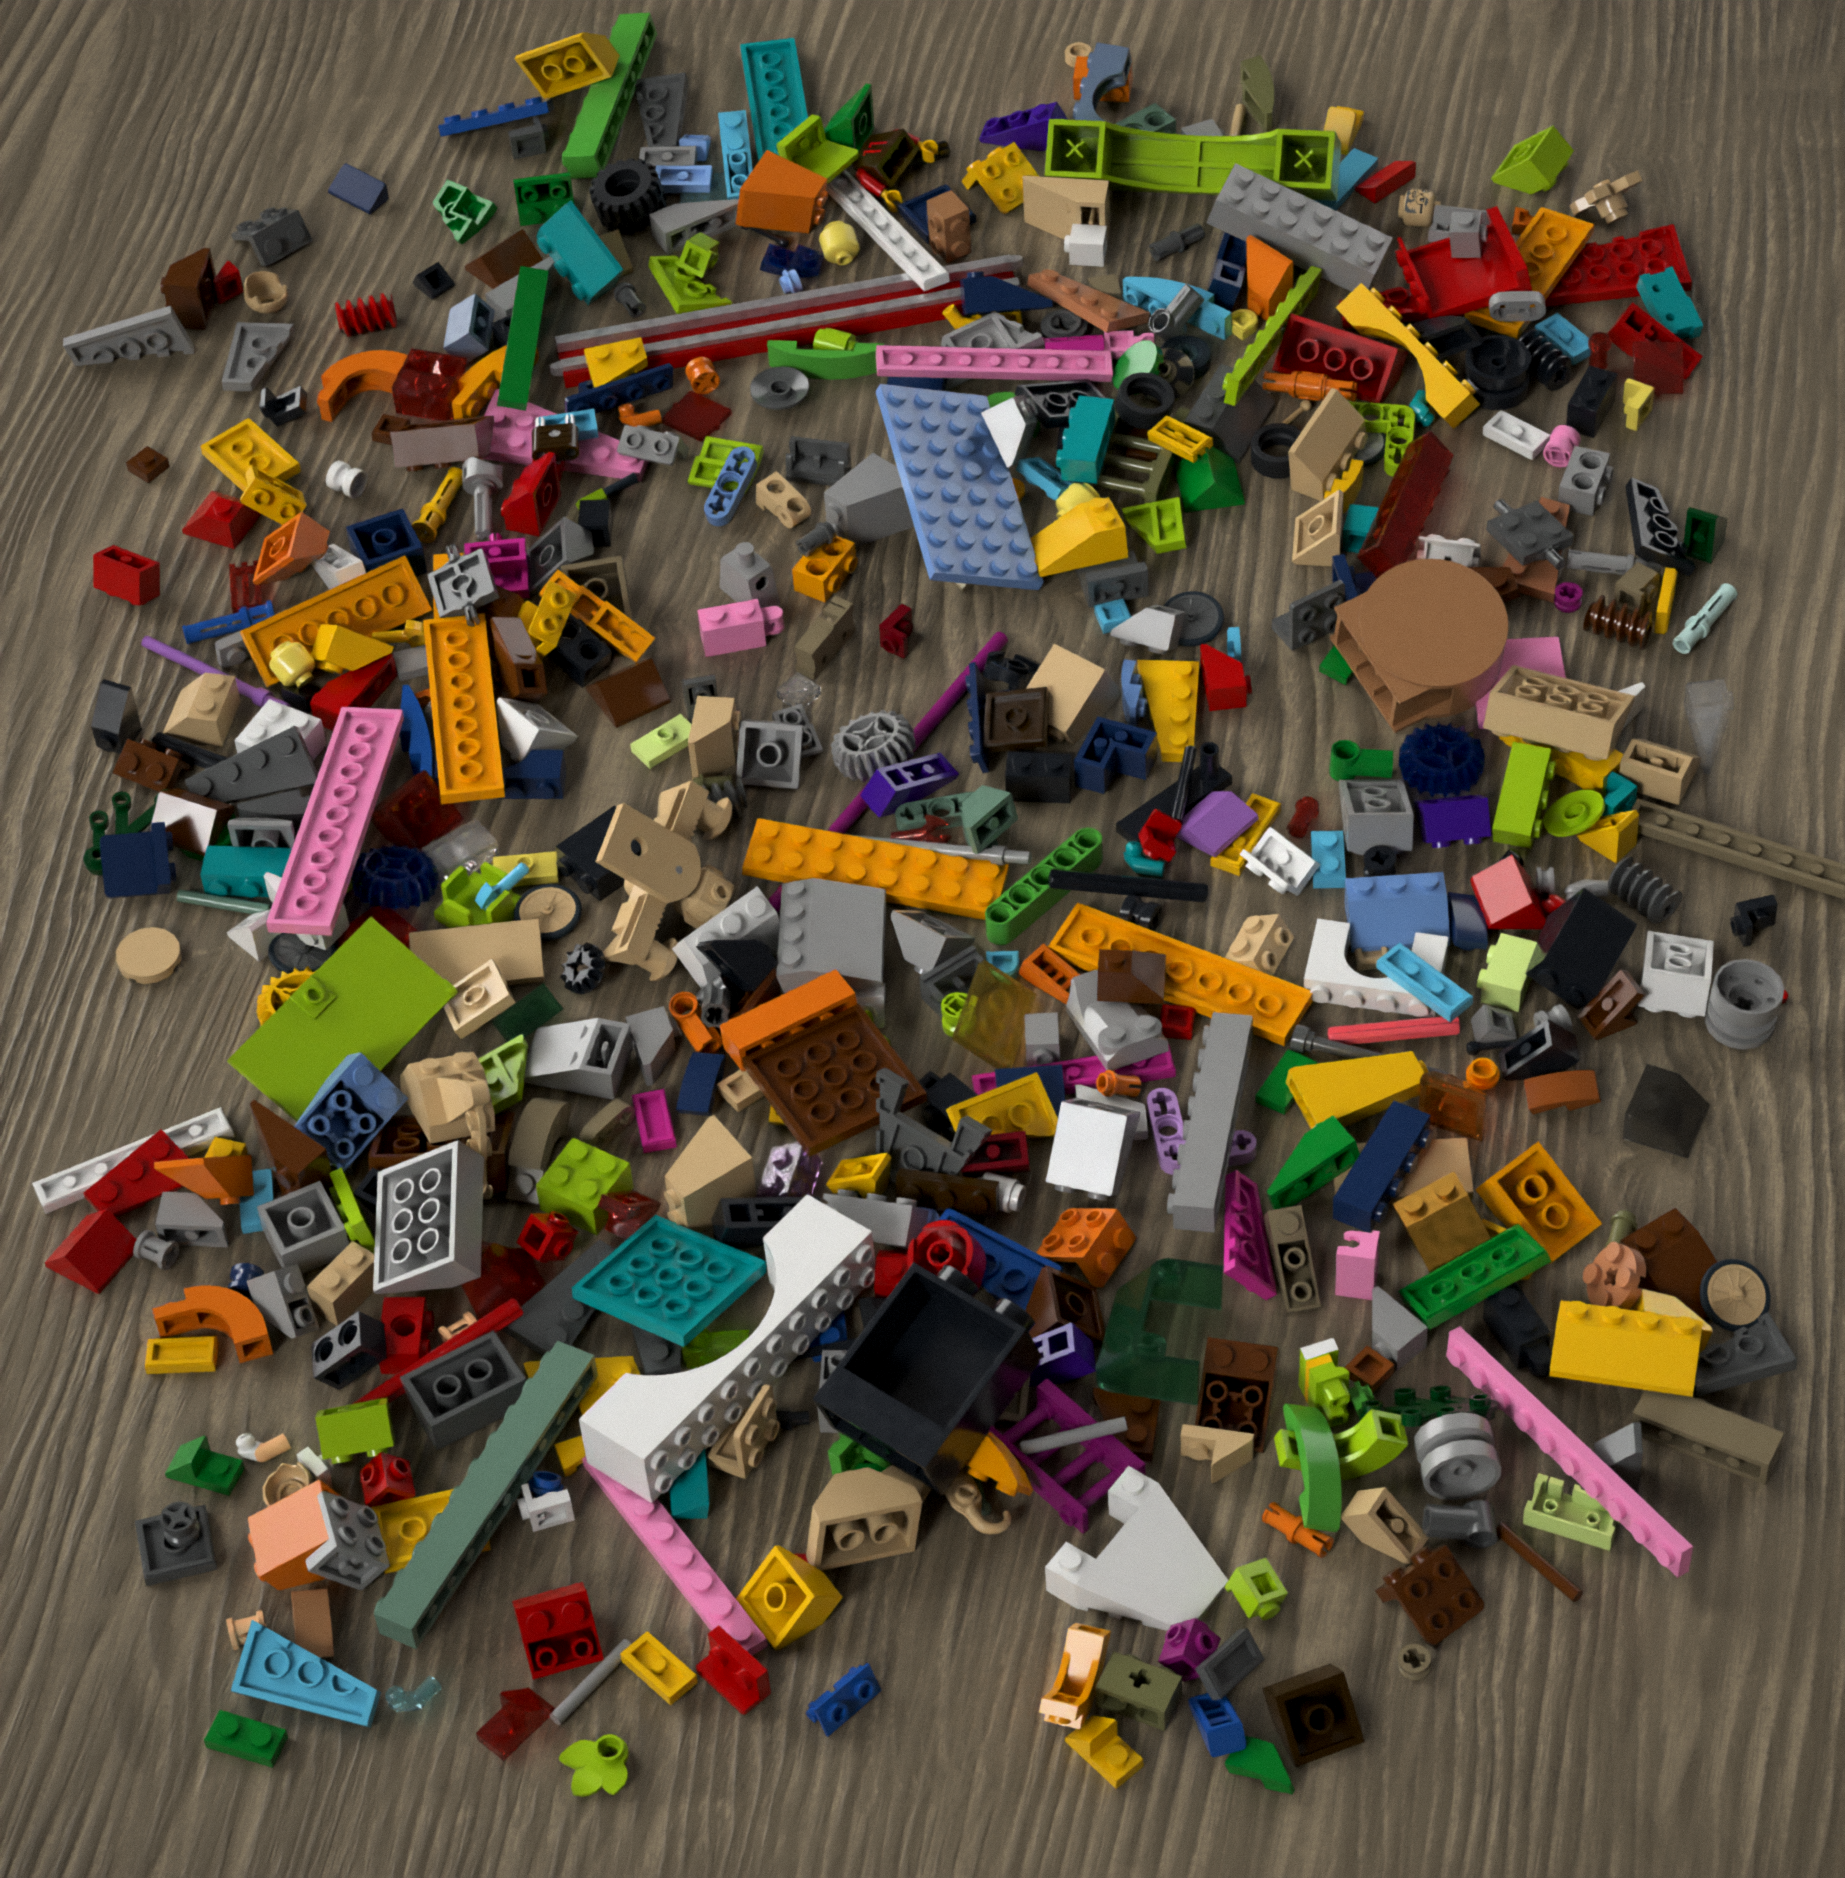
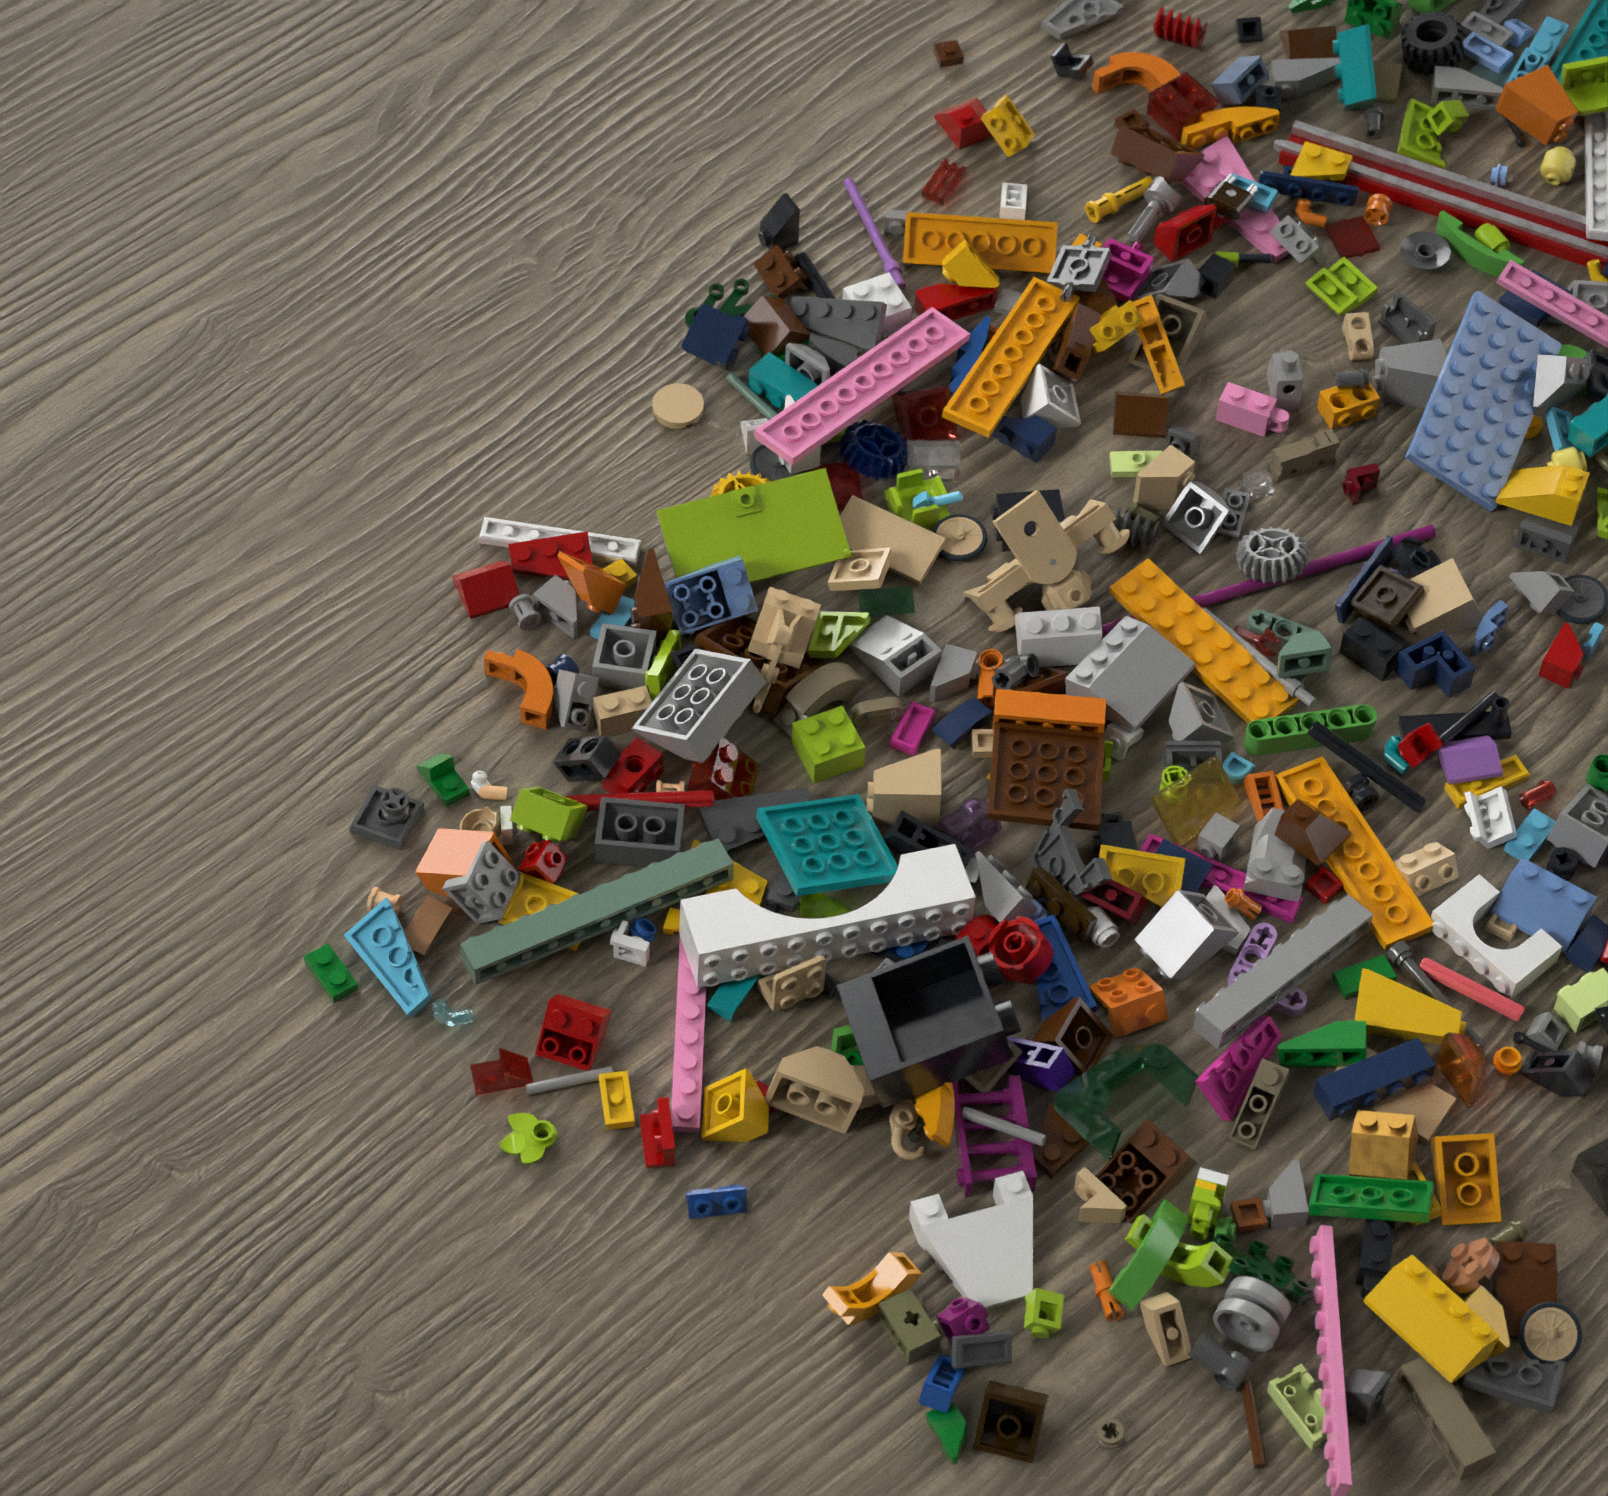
camera: 30 degrees right, 5 degrees up
(126, 575) = (868, 126): red brick -> none
(181, 1355) = (488, 693): yellow tile -> none
(193, 632) = (925, 202): blue pin -> none
(205, 710) = (846, 255): tan slope -> none
(247, 446) = (1022, 83): yellow plate -> none
(291, 549) = (988, 173): orange slope -> none
(292, 664) = (924, 256): light yellow head -> none
(299, 697) = (918, 279): black slope -> none
(342, 477) = (1072, 145): white wheel -> none
(386, 539) = (1057, 203): dark blue brick -> none
(412, 634) = (1020, 280): yellow bar -> none
(522, 338) = (1268, 108): green tile -> none
(541, 867) = (974, 499): light yellow plate -> none
(547, 1236) = (774, 763): red brick -> none
(570, 653) = (1119, 360): black brick -> none
(584, 980) = (958, 587): black gear -> none
(627, 1211) = (843, 778): clear red slope -> none
(732, 498) = (1332, 294): medium blue beam -> none
(741, 961) = (1049, 652): black slope -> none
(804, 260) = (1519, 164): clear blue slope -> none
(862, 1174) = (1016, 855): yellow slope -> none
(907, 782) = (1276, 596): dark purple slope -> none
(1105, 1750) = (856, 1351): yellow slope -> none
(1111, 614) = (1526, 561): medium azure tile -> none
(1172, 703) = (1514, 654): yellow wing -> none
(1358, 1265) = (1298, 1140): bright pink hinge -> none
(1424, 982) = (1515, 968): medium azure tile -> none
(1433, 1593) = (1159, 1396): reddish brown bracket -> none
(1559, 1089) = (1554, 1108): dark orange slope -> none

